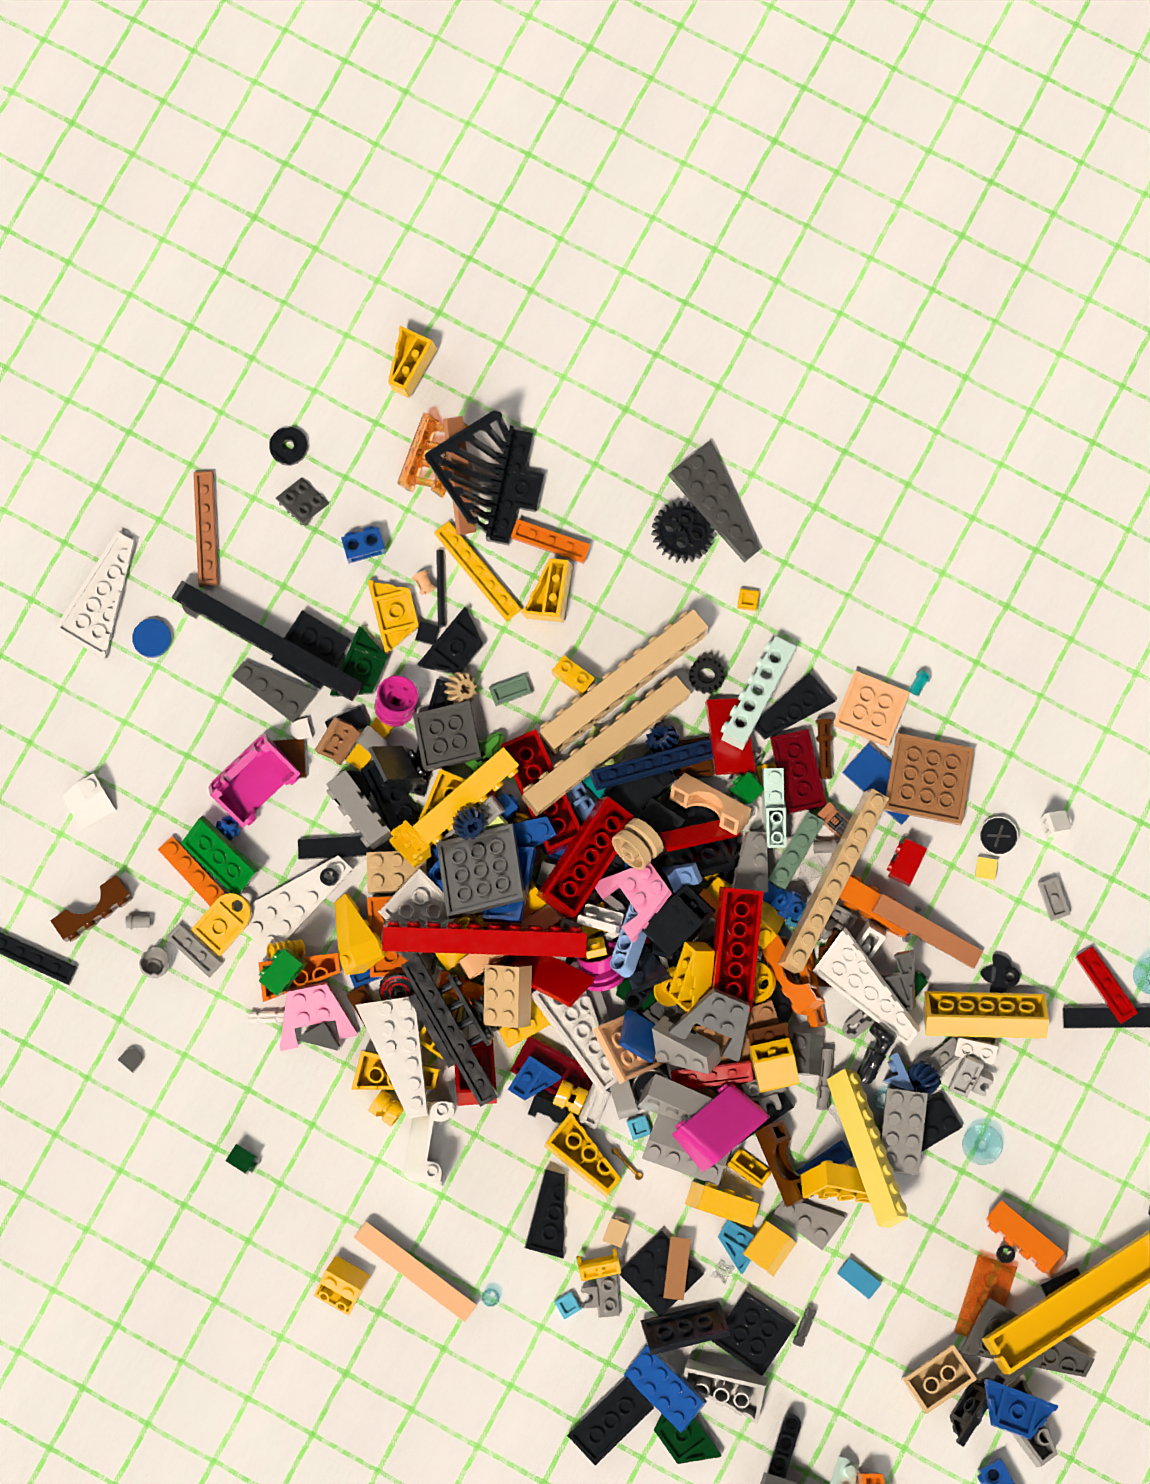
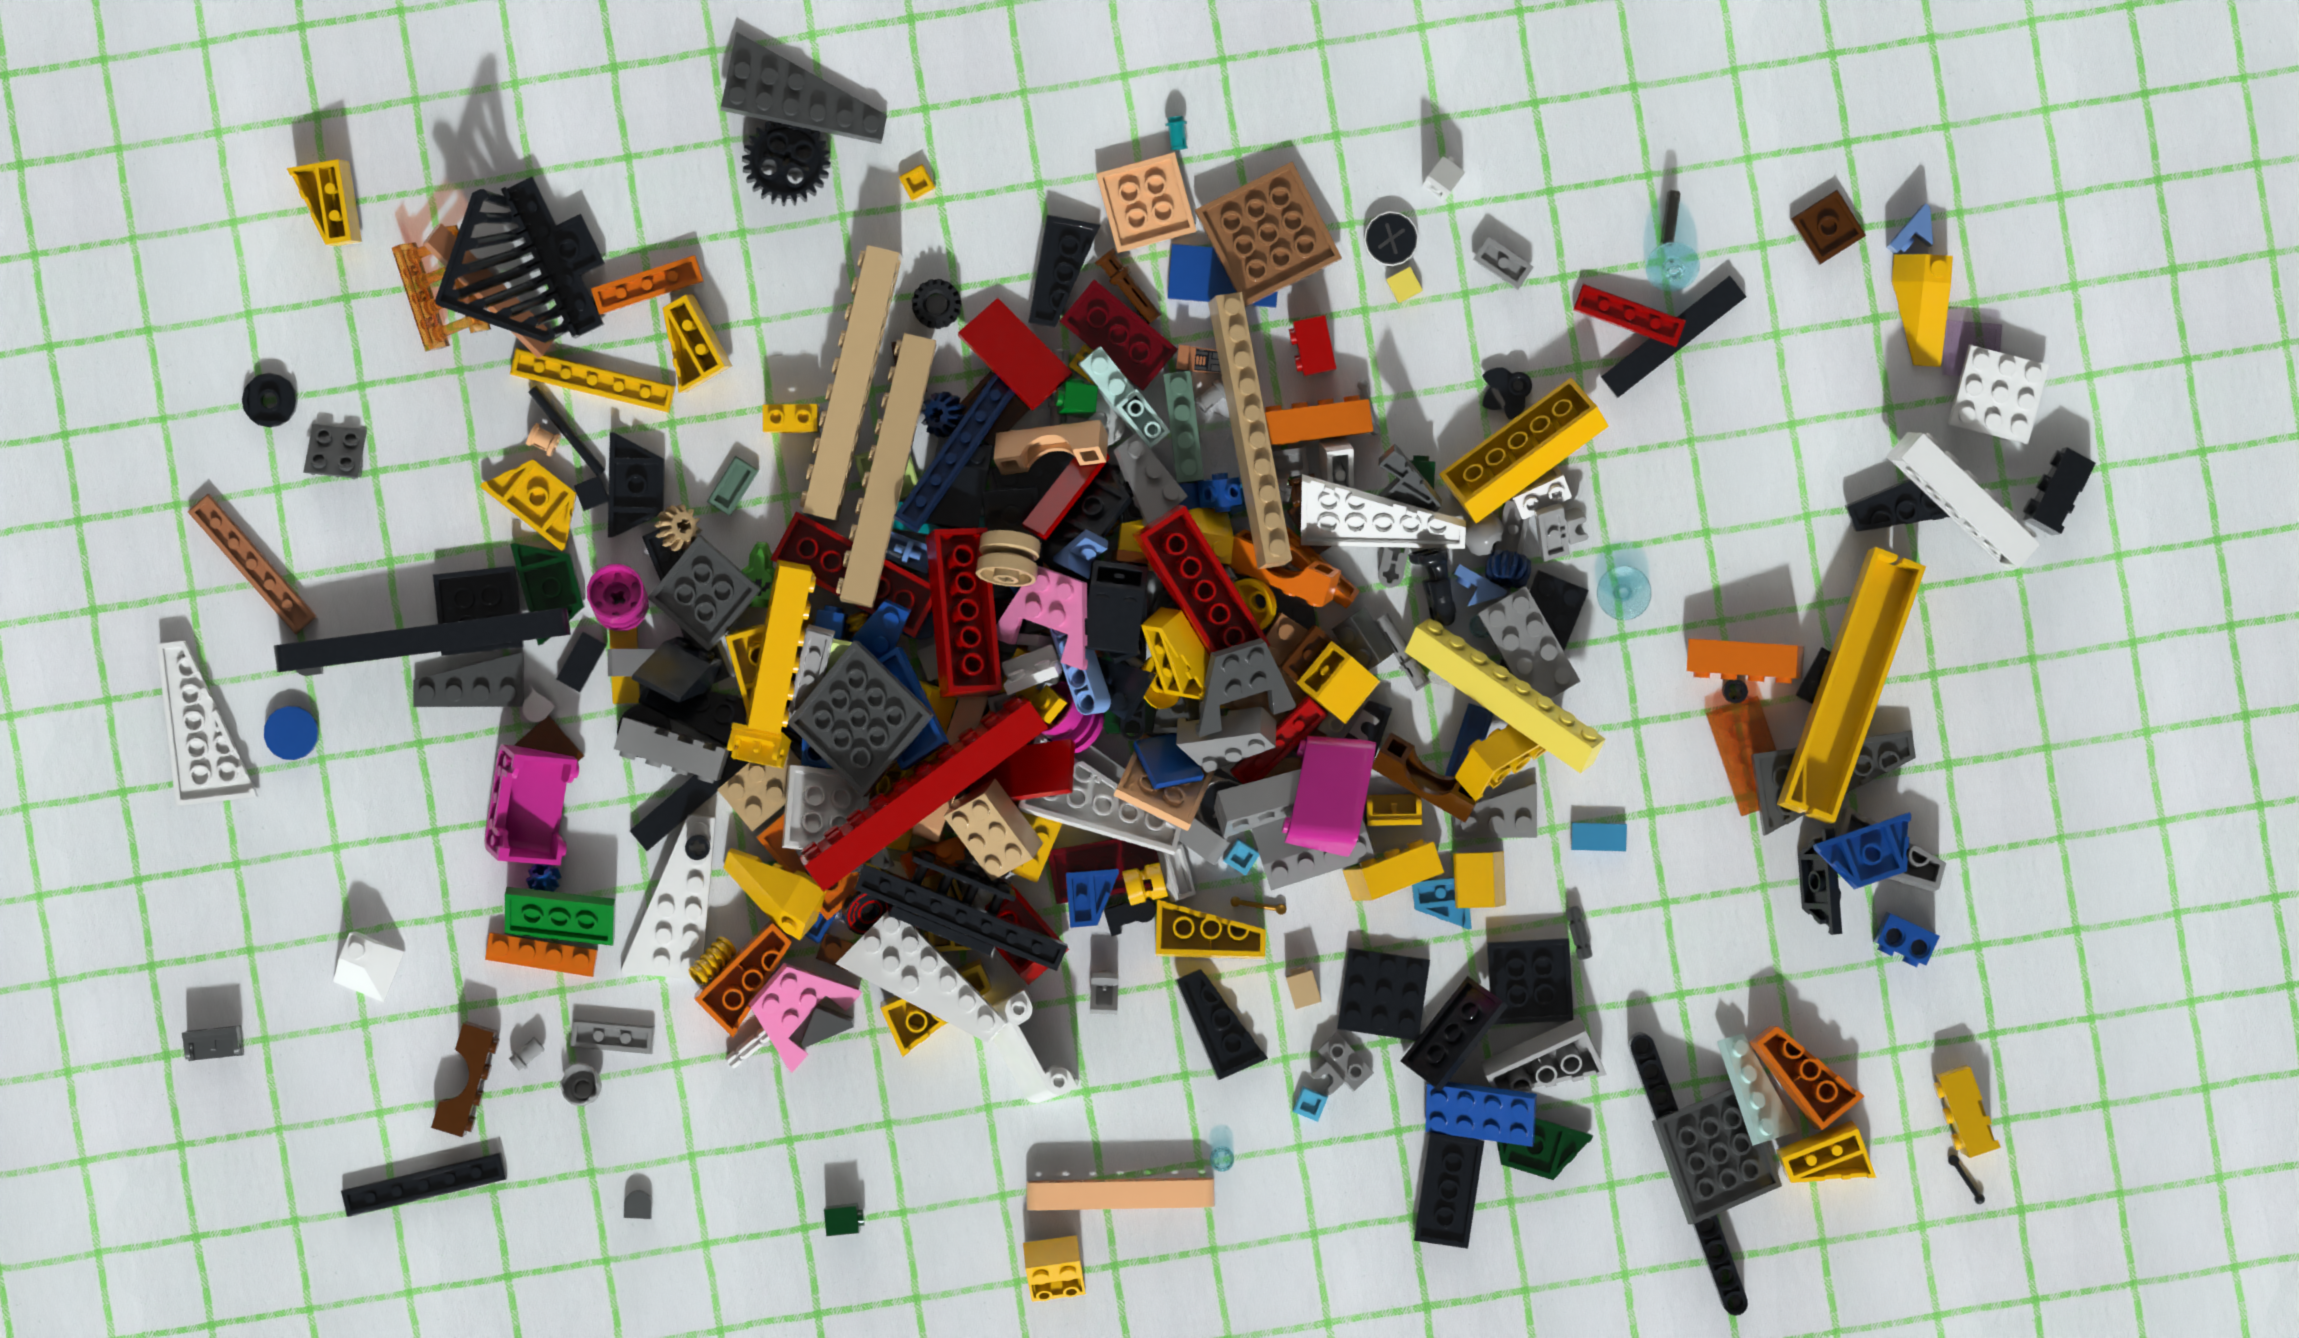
camera: 40 degrees left, 10 degrees up
(222, 923) = (619, 984): yellow tile -> none
(282, 971) = (730, 1001): green brick -> none
(338, 740) = (588, 689): medium nougat bracket -> none
(364, 549) = (447, 453): blue brick -> none
(386, 1108) = (954, 1046): yellow wheel -> none
(469, 823) = (807, 676): dark blue gear -> none
(497, 1144) = (1104, 993): none -> light grey bracket
(599, 1266) = (1312, 1038): yellow hinge -> none
(677, 1268) = (1397, 977): medium nougat tile -> none
(722, 1271) = (1448, 941): clear wheel -> none
(737, 735) = (1002, 213): light aqua brick -> none
(924, 1045) = (1483, 534): none -> light grey hair
(927, 931) = (1392, 406): nougat tile -> none
(939, 1379) = (1762, 879): tan brick -> none

